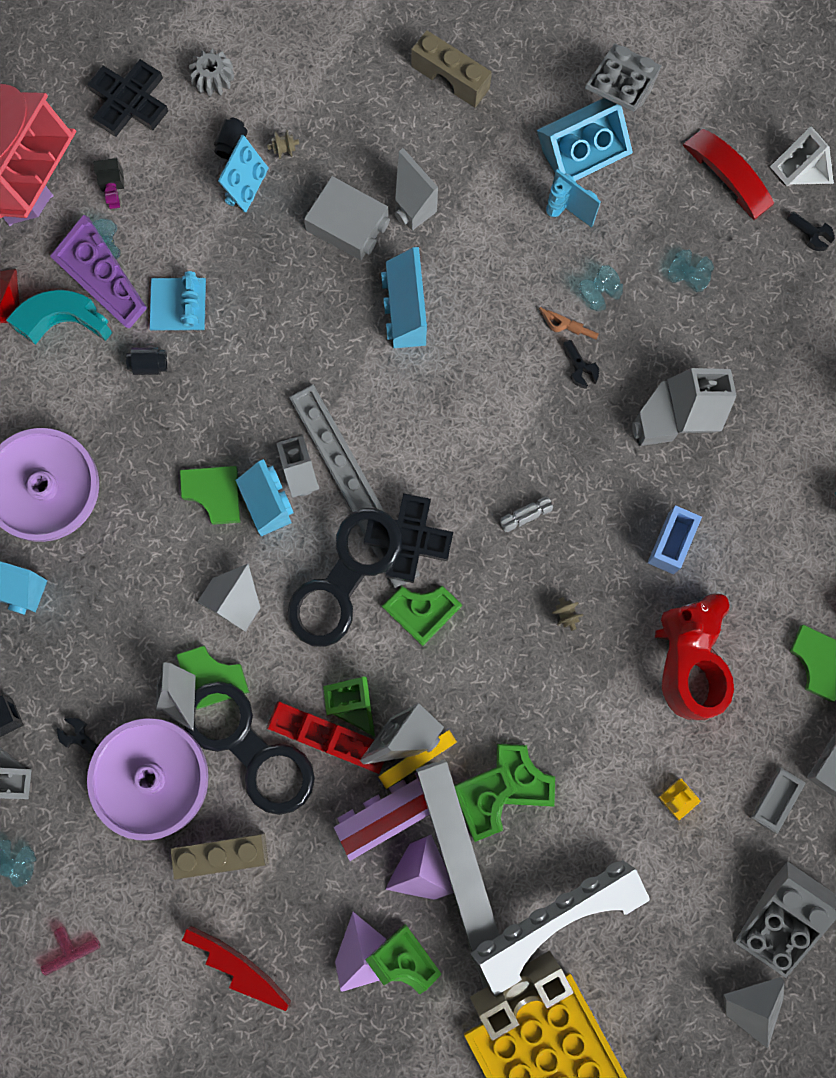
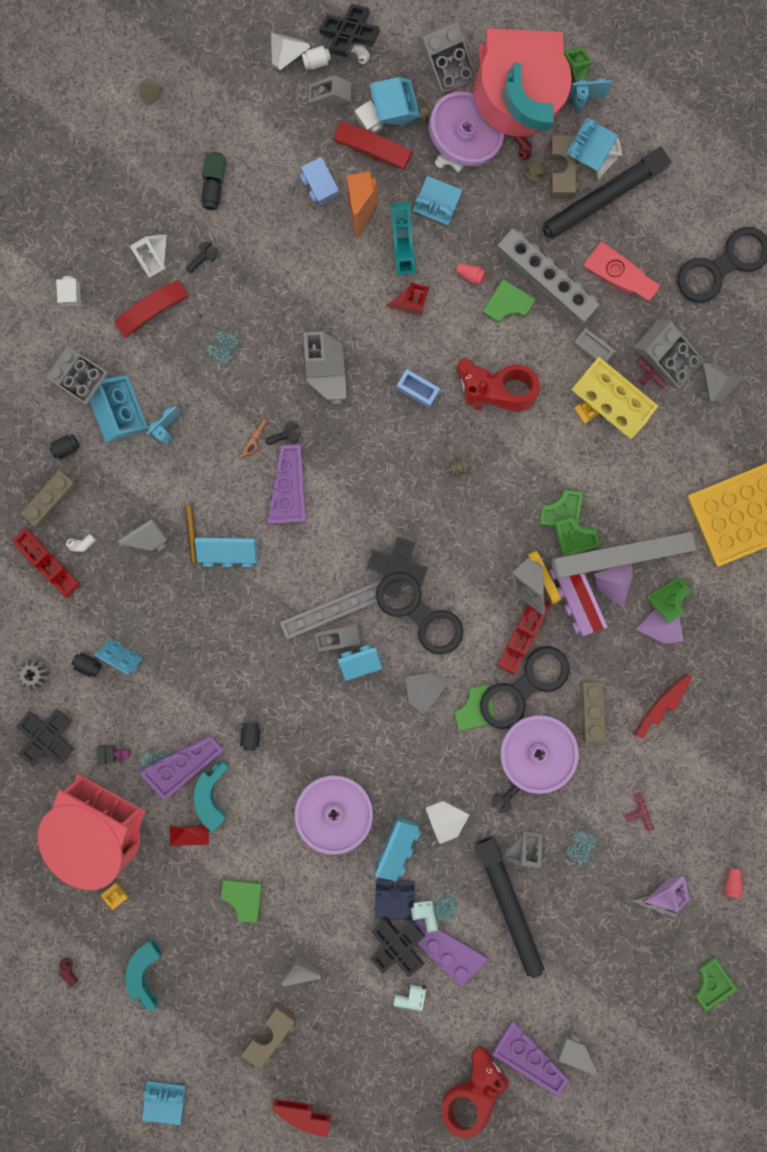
camera: 80 degrees left, 10 degrees up
(40, 648) = (446, 820): none -> white slope
(176, 694) = (487, 732): light grey slope -> none
(178, 303) = (208, 712): medium azure hinge -> none
(214, 490) = (347, 696): bright green tile -> none
(283, 144) = (95, 627): dark tan wheel -> none
(347, 218) = (159, 586): light grey brick -> none
(351, 703) = (502, 617): bright green slope -> none
(364, 76) = (46, 562): none -> red slope
(392, 116) = (80, 545): none -> white arm
(422, 613) = (447, 564): bright green tile -> none
(439, 253) = (191, 533): none -> pearl gold bar
(500, 378) = (288, 492): none -> medium lavender wing
(505, 956) = (674, 535): arch -> none
(524, 81) = (64, 446): none -> black brick
(526, 514) = (387, 485): light grey axle -> none
(540, 981) = (699, 540): dark tan arch -> none
(607, 281) = (225, 408): clear light blue piece -> none
(708, 811) = (620, 404): none -> light yellow brick
(733, 65) = (68, 291): none -> white brick
(751, 892) = (650, 373): none -> clear pink piece
(801, 521) = (411, 299): none -> red slope

